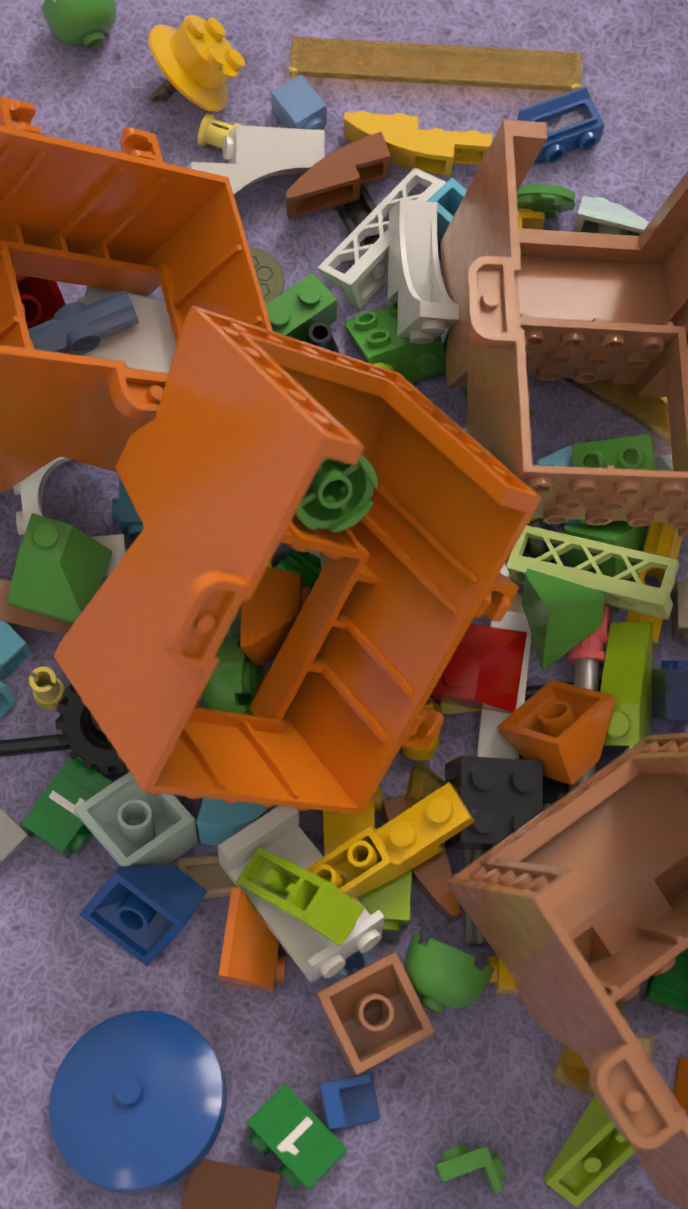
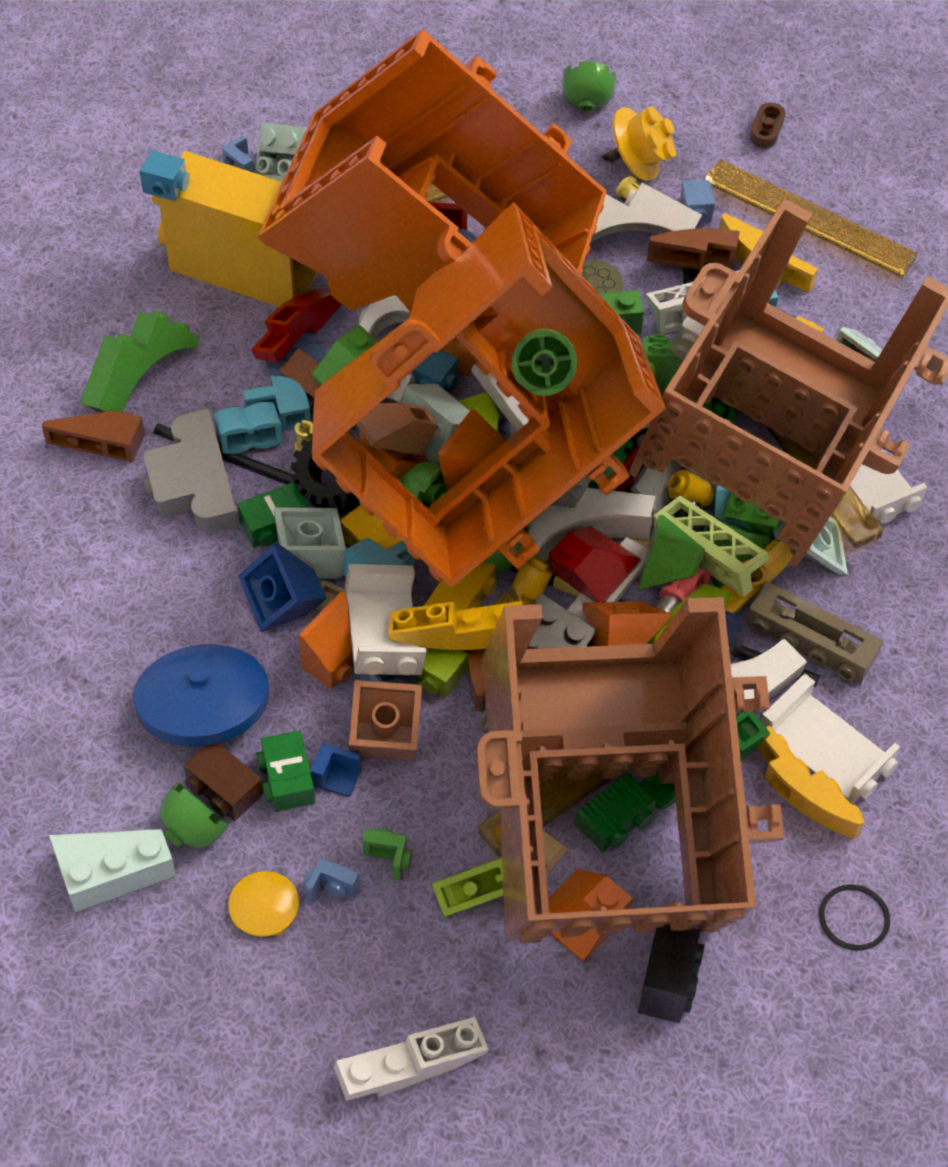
camera: 30 degrees right, 15 degrees down
(301, 895) = (382, 614): lime slope -> none
(444, 975) = (447, 724): bright green cylinder -> none
(542, 199) = (825, 317): bright green wheel -> none
(570, 124) = (872, 288): blue window -> none

